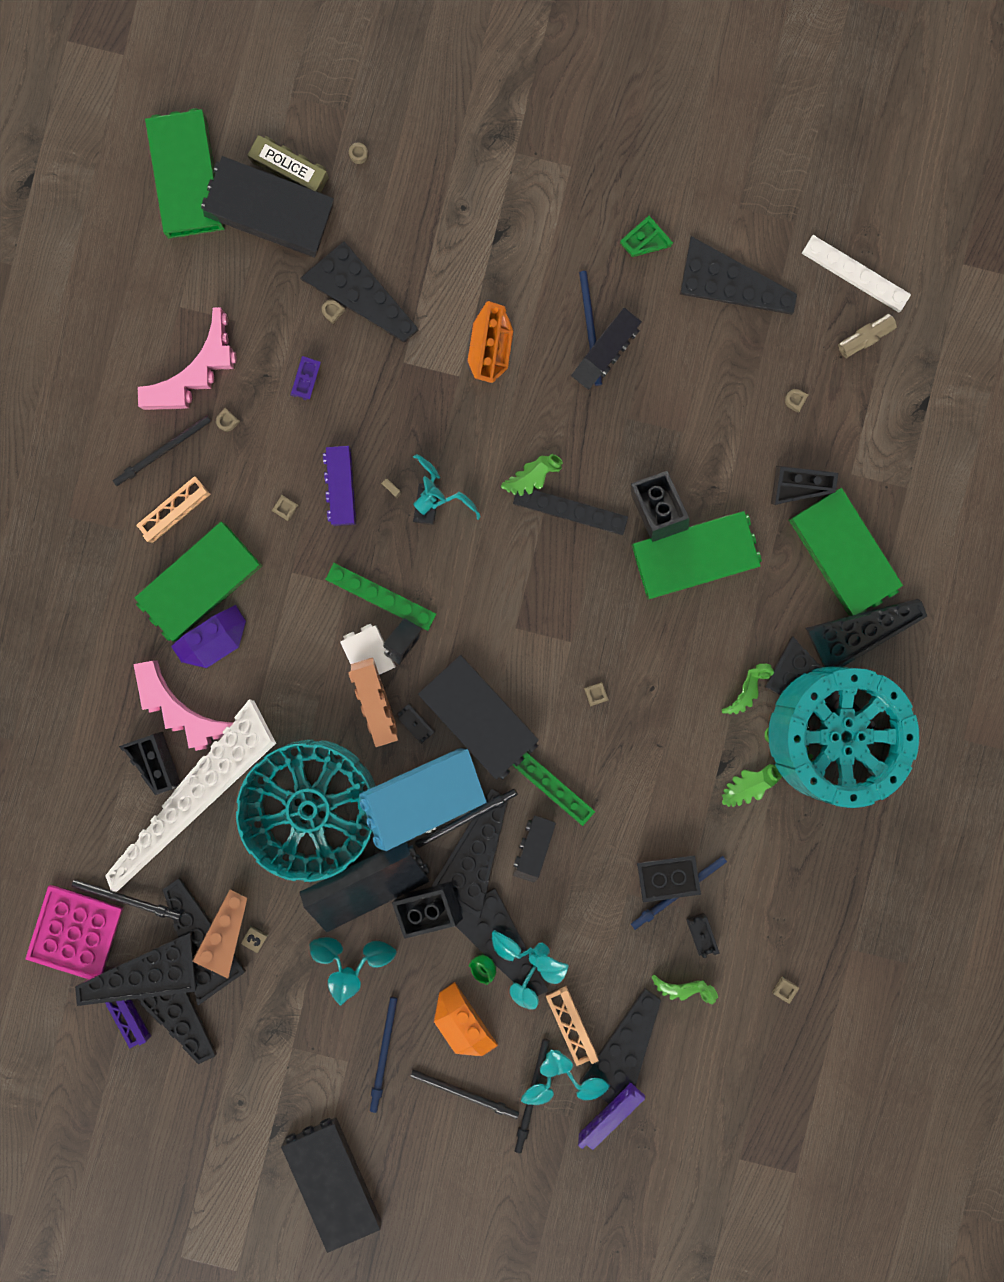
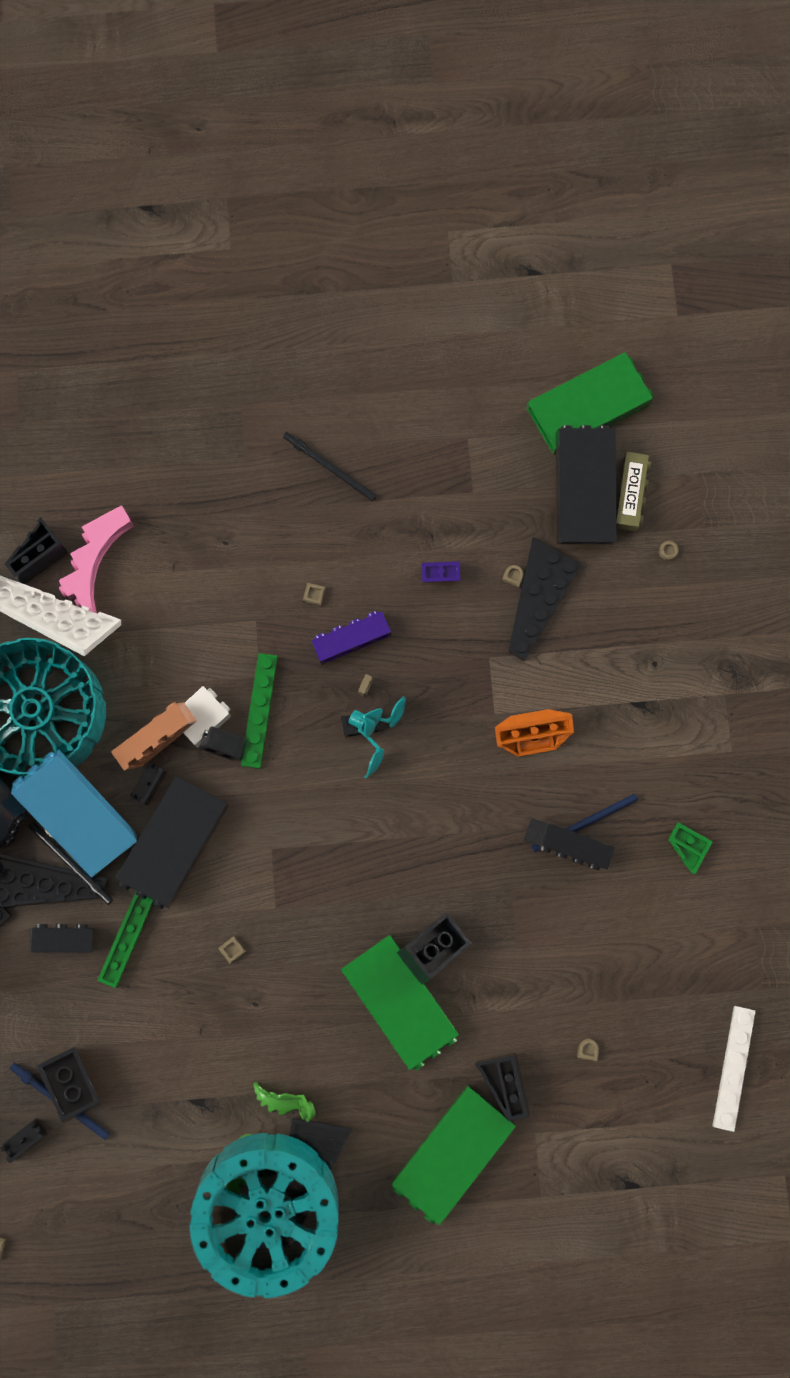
camera: 75 degrees right, 10 degrees down
(176, 513) = (275, 497): light nougat fence -> none
(197, 582) = (217, 538): green brick -> none
(198, 375) = (410, 475): bright pink arch -> none
(212, 639) = (169, 568): dark purple wedge -> none
(226, 420) = (377, 514): dark tan tile -> none
(533, 475) = (423, 815): bright green plant -> none
(572, 511) = (402, 863): black plate -> none
(722, 279) = (679, 936): black wing -> none
(750, 785) = (189, 1137): bright green plant -> none
(853, 636) = (373, 1194): black wing -> none
(867, 335) = (676, 1101): dark tan piece -> none

